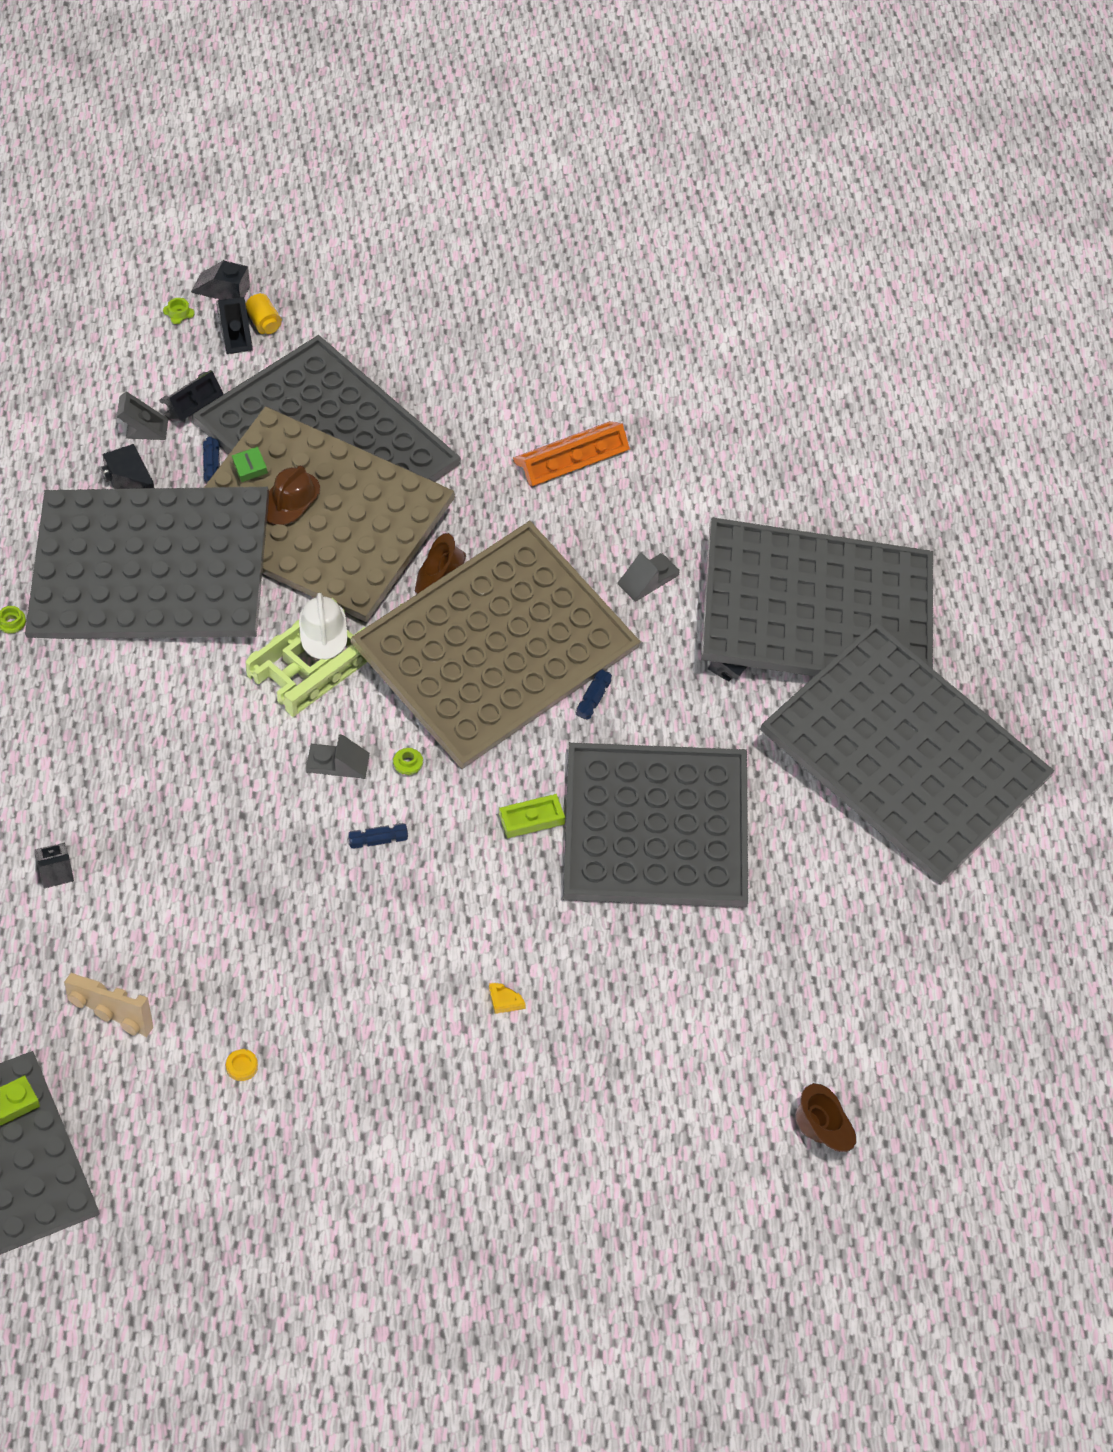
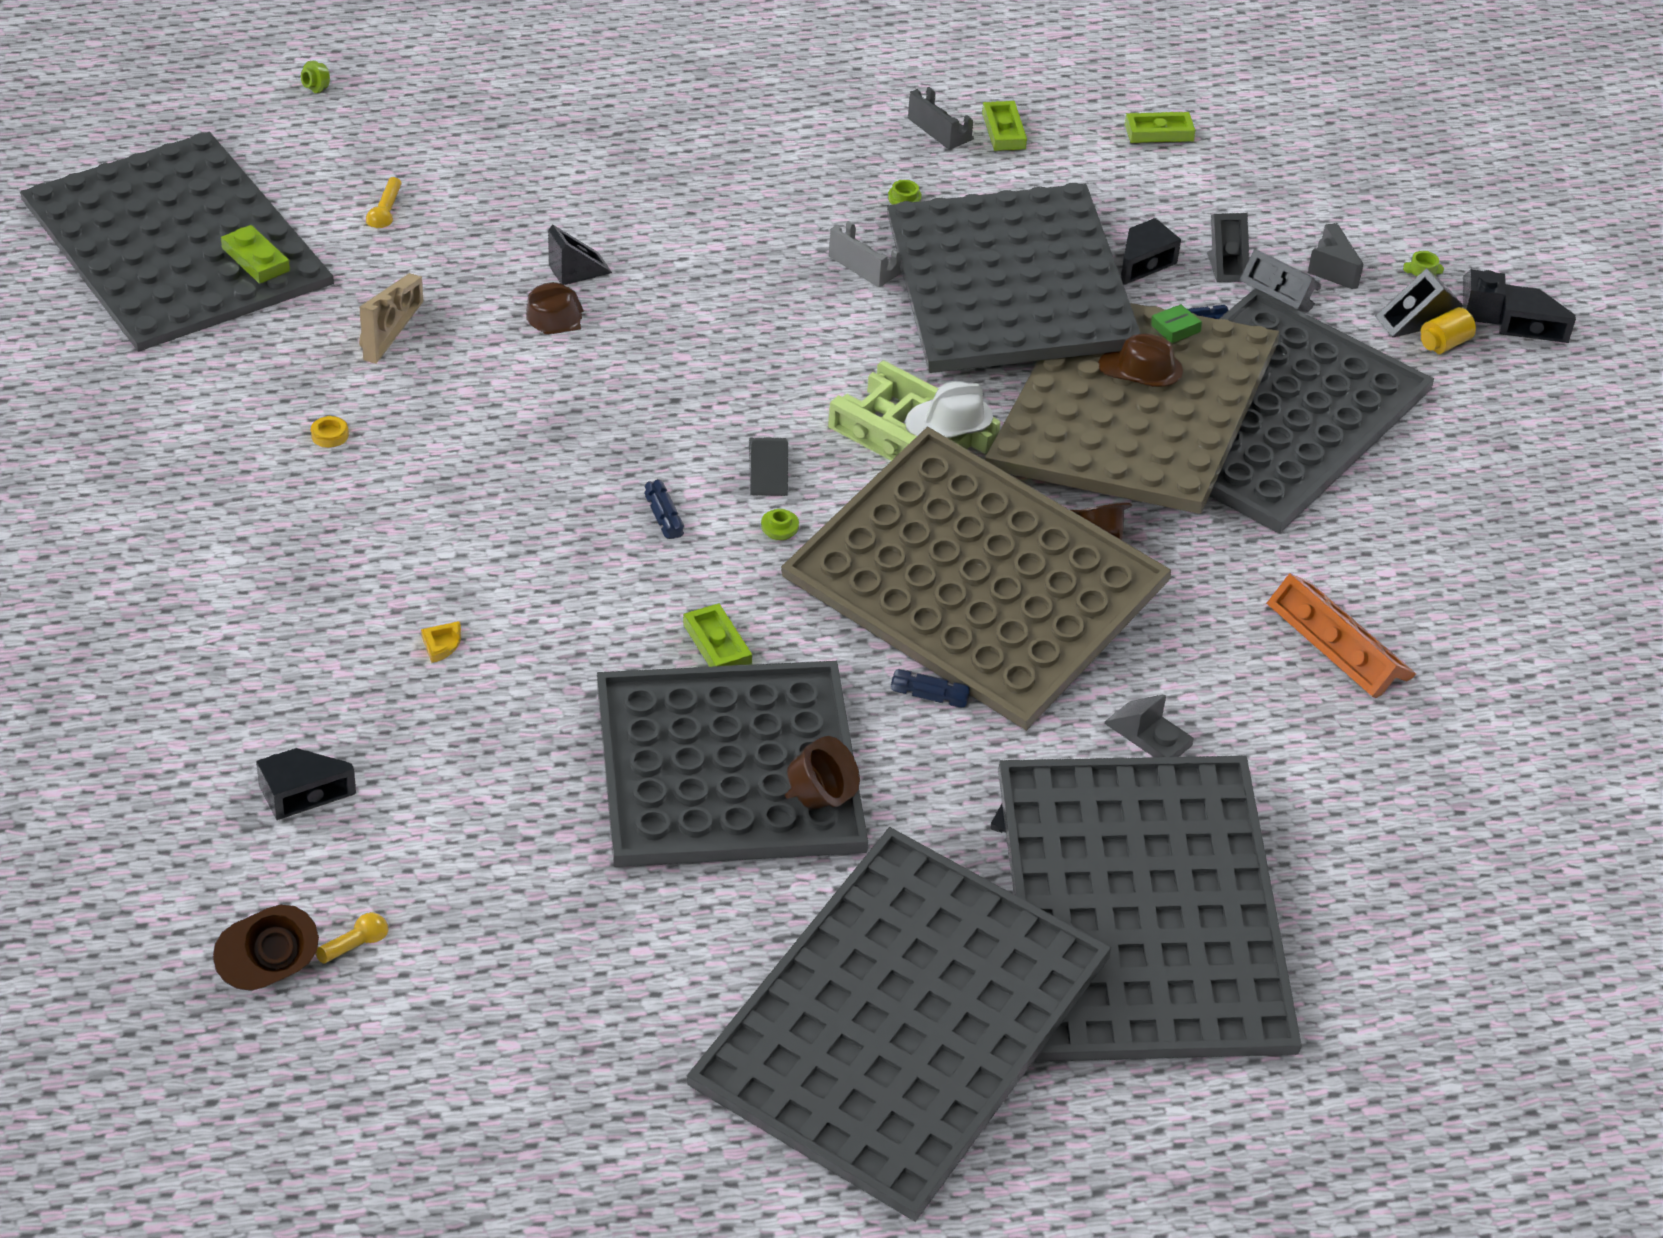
camera: 80 degrees right, 10 degrees down
(93, 659) = (861, 258): none -> light grey hinge
(112, 888) = (554, 308): none -> reddish brown piece
(169, 355) = (1336, 258): none -> dark grey slope
(258, 257) = (1535, 315): none -> black slope
(655, 1098) = (303, 781): none -> black slope
(700, 764) = (823, 774): none -> reddish brown piece
(793, 1064) = (367, 929): none -> yellow bar

